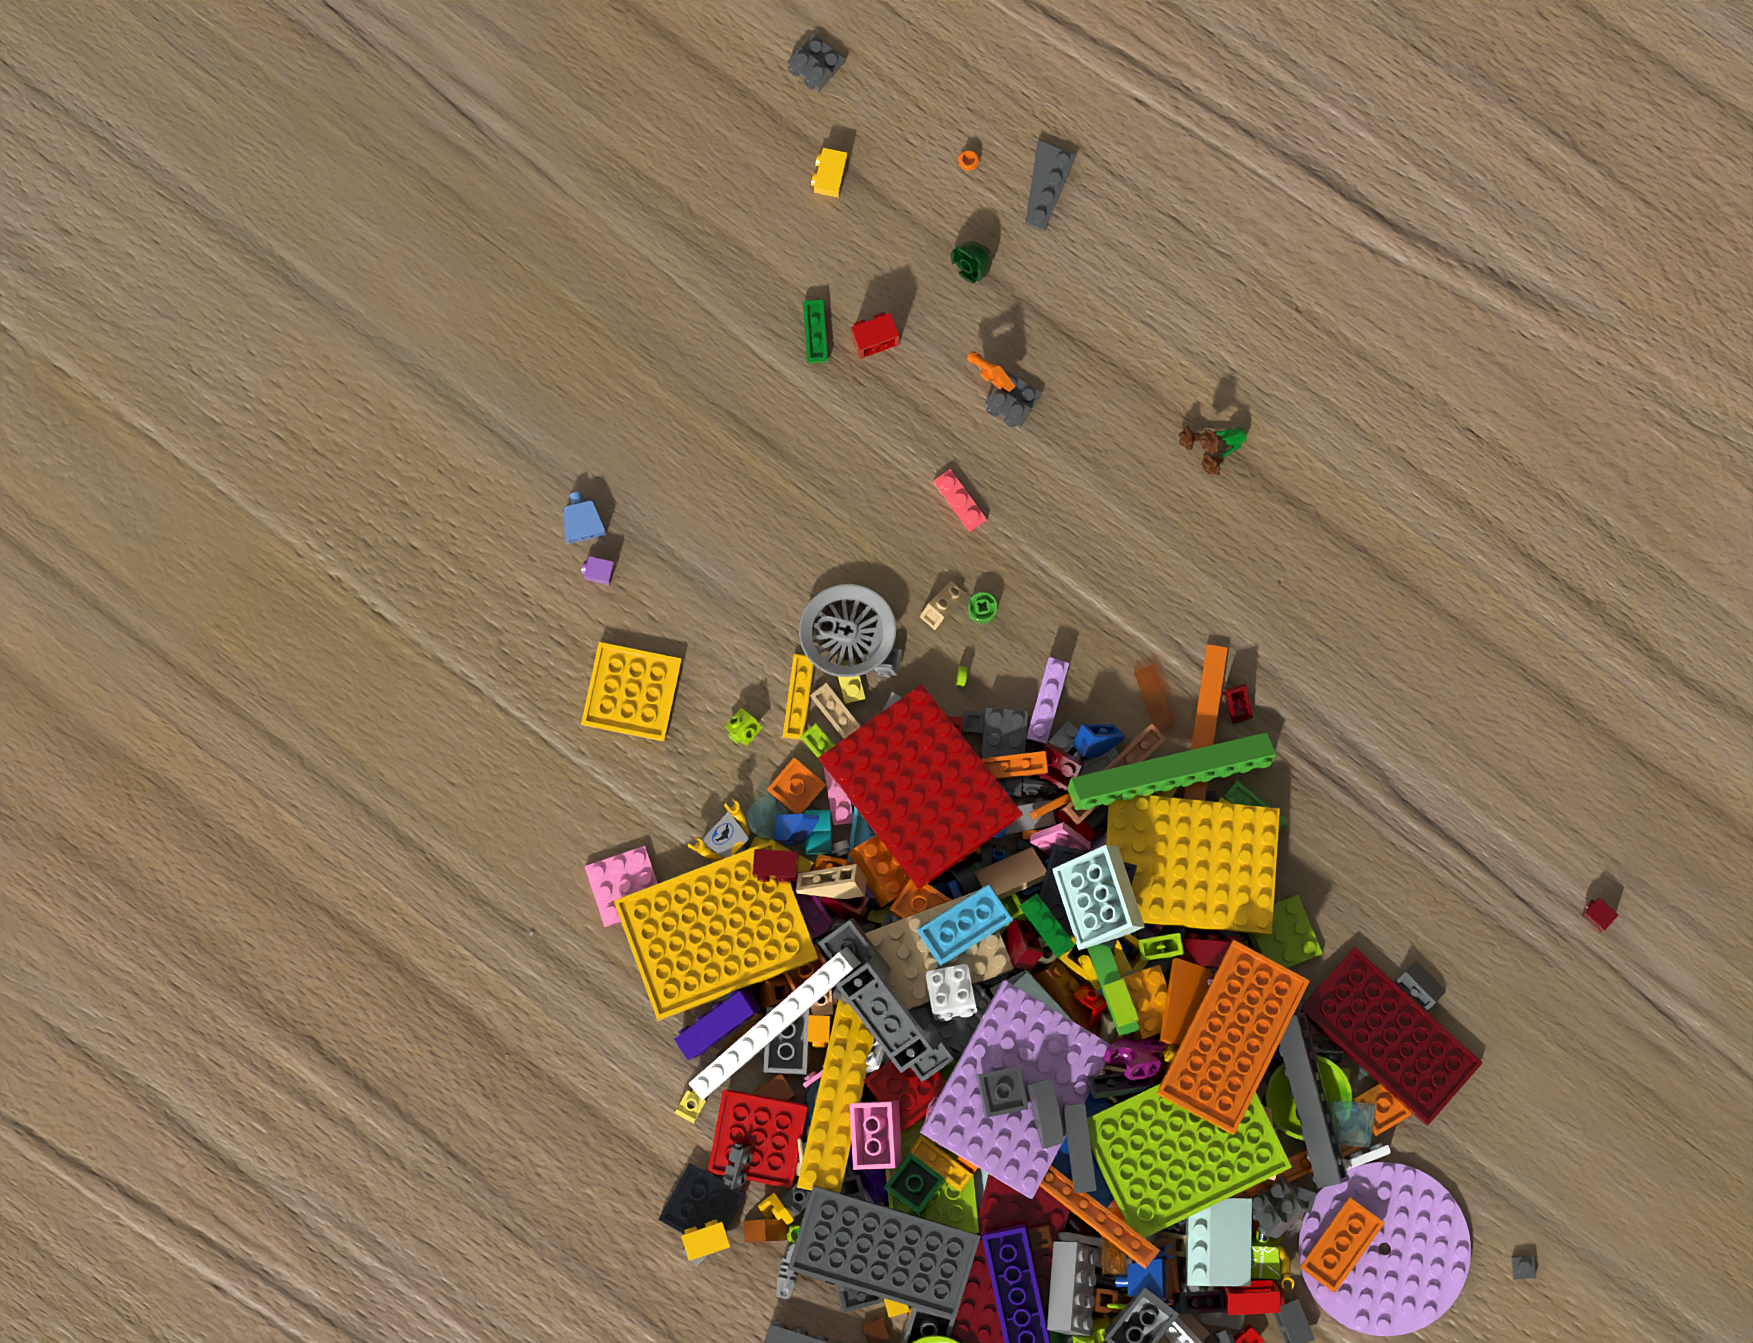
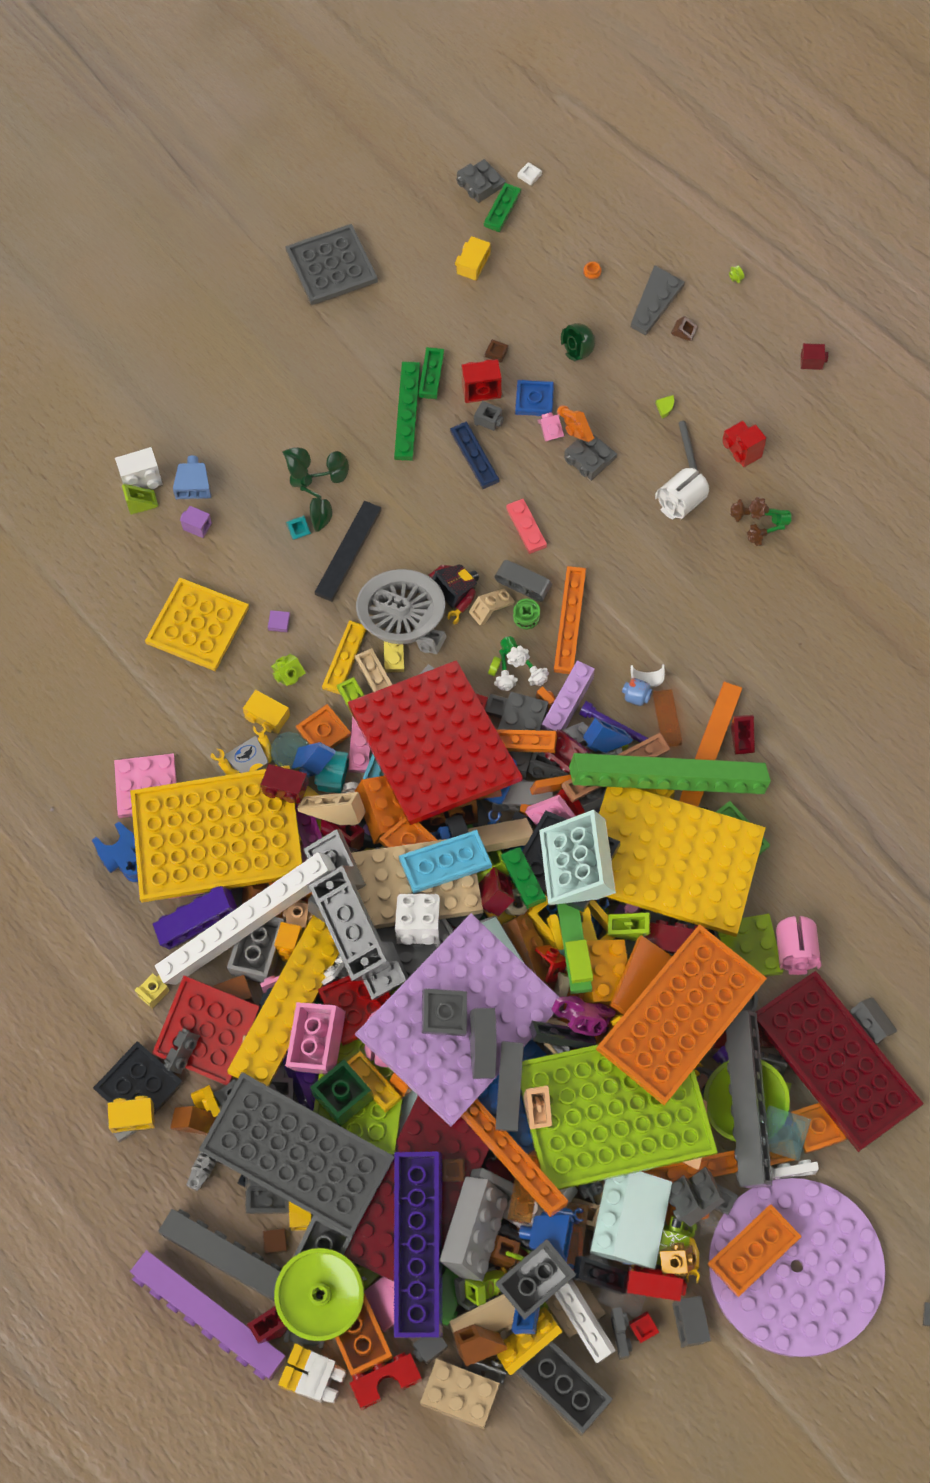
camera: 15 degrees right, 15 degrees down
(522, 526) = (139, 469): none -> white brick
(530, 555) = (139, 498): none -> lime slope
(620, 970) = (119, 855): none -> blue piece
(669, 211) = (331, 264): none -> dark grey plate
(702, 495) = (297, 462): none -> dark green plant
(711, 552) = (298, 527): none -> teal slope
(717, 669) = (278, 621): none -> medium lavender tile
(731, 779) = (266, 711): none -> yellow brick
(773, 570) = (348, 551): none -> black tile
(798, 383) = (407, 411): none -> green plate
(848, 96) = (502, 207): none -> green plate
(870, 42) = (529, 173): none -> white tile
(881, 286) = (496, 350): none -> reddish brown tile
(884, 424) = (474, 455): none -> dark blue tile
(886, 370) = (488, 416): none -> dark grey brick
(901, 592) = (457, 586): none -> torso
(936, 338) = (534, 397): none -> blue tile
(962, 373) = (551, 426): none -> bright pink bracket
(970, 569) = (523, 580): none -> dark grey beam
(986, 670) = (517, 656): none -> white plant
(1024, 703) = (545, 695): none -> orange plate
(1030, 605) = (569, 620): none -> orange plate
(1072, 707) = (590, 711): none -> dark purple piece
(1083, 320) = (665, 405): none -> lime tile
(1086, 216) = (684, 328): none -> reddish brown slope
(1112, 1165) = (538, 1107): none -> light nougat slope
(1118, 676) = (637, 692): none -> medium blue head
(1121, 375) = (687, 445): none -> dark grey bar
(1126, 656) = (653, 678): none -> white helmet
(1132, 133) = (736, 274): none -> lime plate
(1133, 436) = (682, 493): none -> white cylinder
(1178, 353) = (744, 443): none -> red brick
(1237, 226) = (813, 356): none -> dark red brick
(1270, 1272) = (677, 1259): none -> pearl gold brick
(1326, 935) = (798, 945): none -> bright pink cylinder

